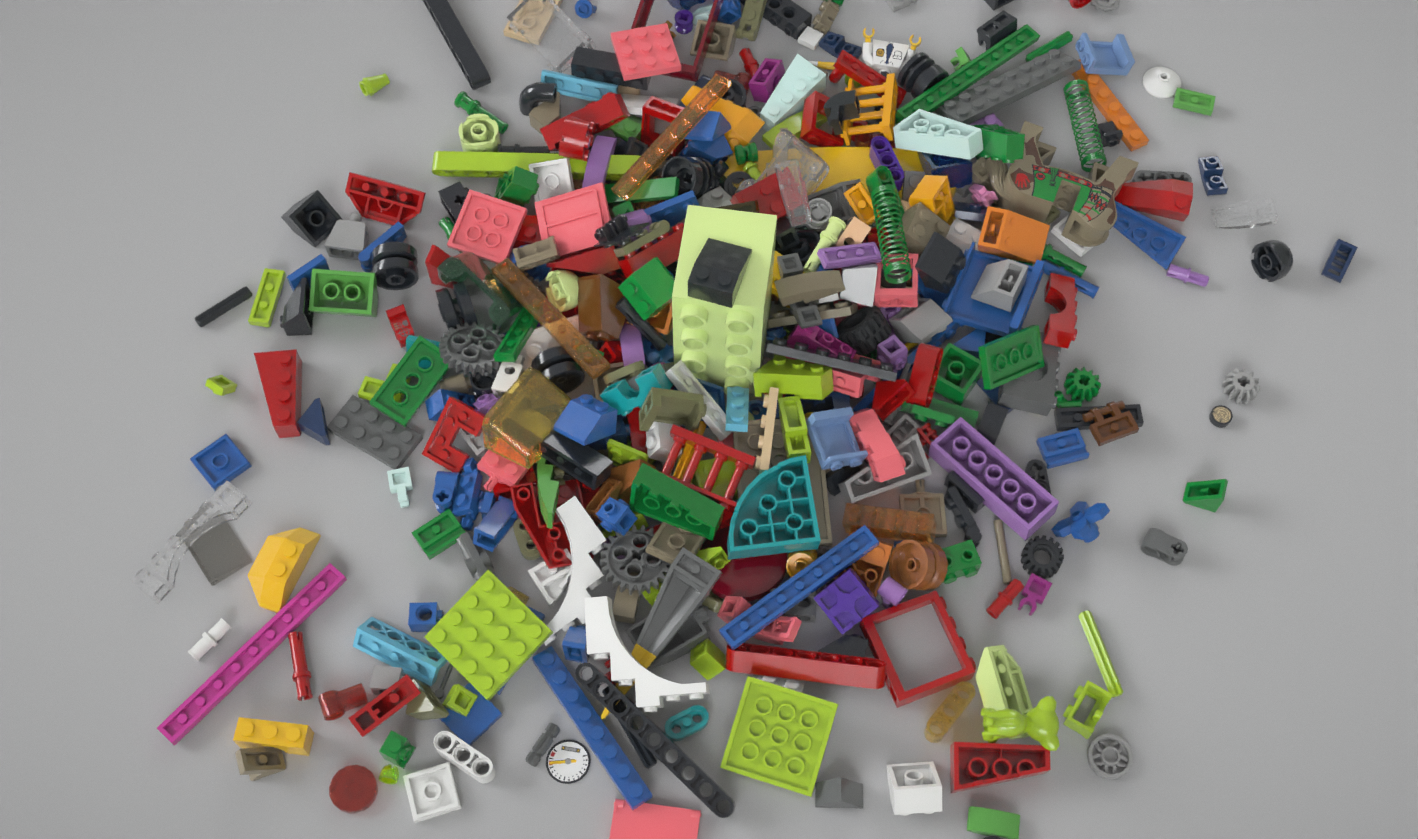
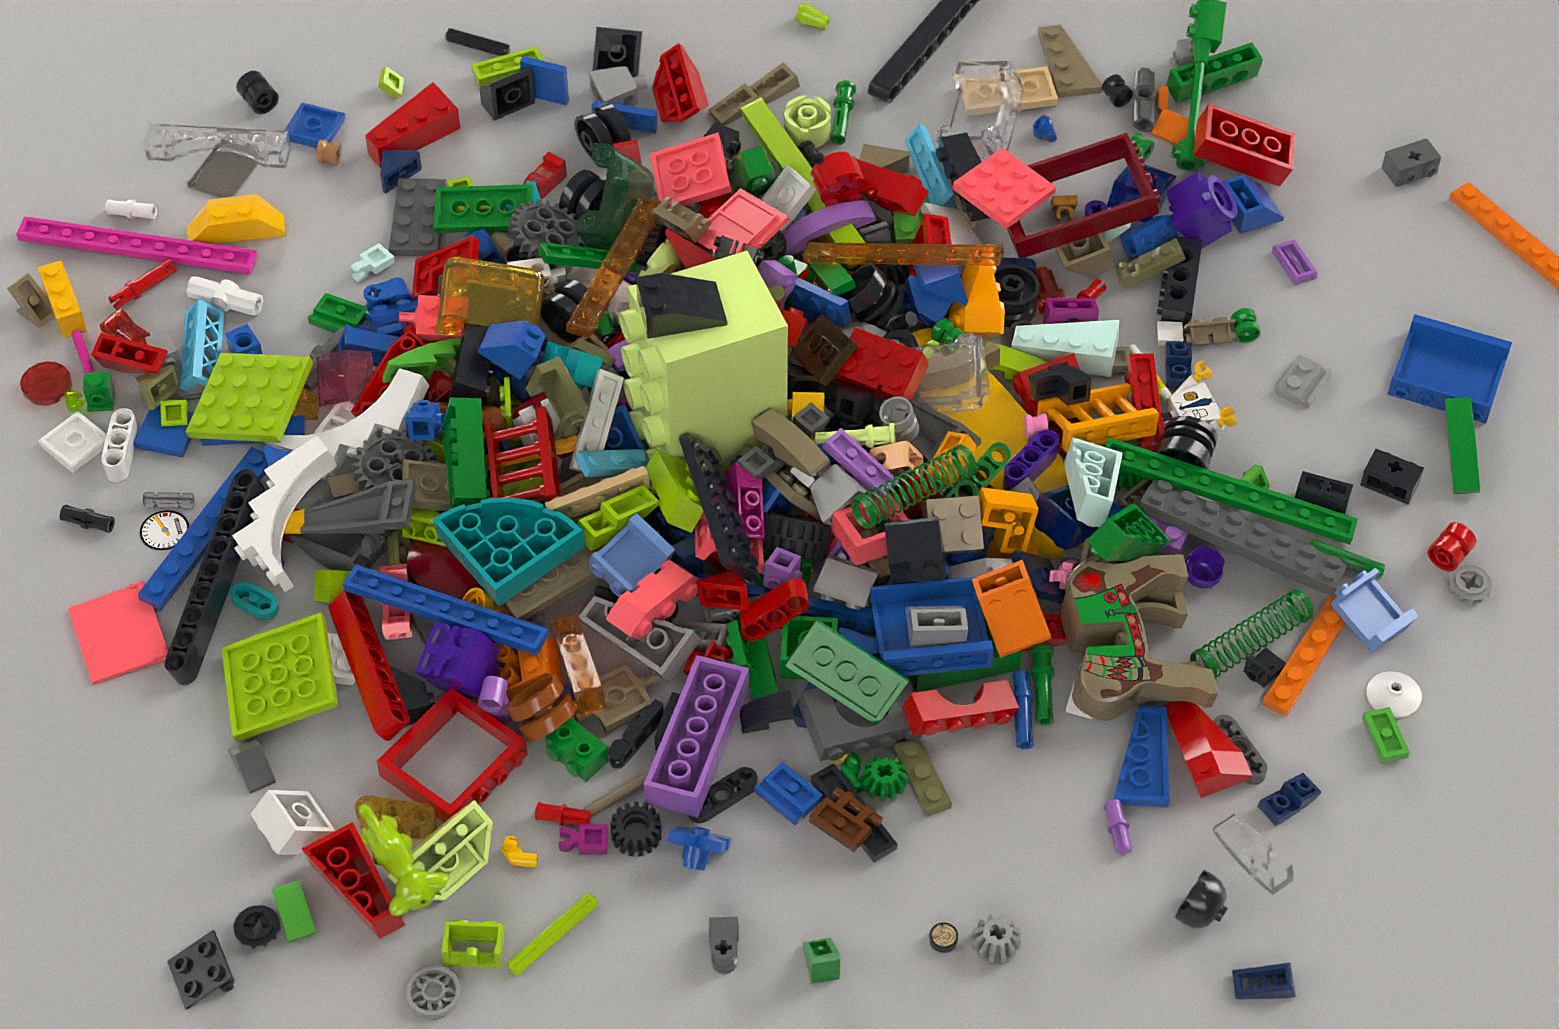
camera: 60 degrees right, 10 degrees down
(152, 485) = (257, 92): none -> black wheel
(262, 463) = (328, 152): none -> medium nougat wheel
(343, 293) = (543, 111): bright green slope -> none
(347, 746) = (82, 352): none -> dark pink bar
(359, 608) = (225, 295): none -> white piece
(421, 156) = (769, 88): none -> dark tan slope
(516, 557) = (343, 376): none -> clear pink slope
(522, 816) = (87, 518): none -> black pin
(536, 93) = (892, 138): black cylinder -> none
(793, 192) = (892, 371): clear slope -> none
(858, 146) = (1033, 425): none -> bright pink wheel
(1015, 119) = (1204, 567): none -> dark purple hair
(1021, 647) = (516, 856): none -> yellow arm
(1102, 365) = (922, 777): none -> olive plate

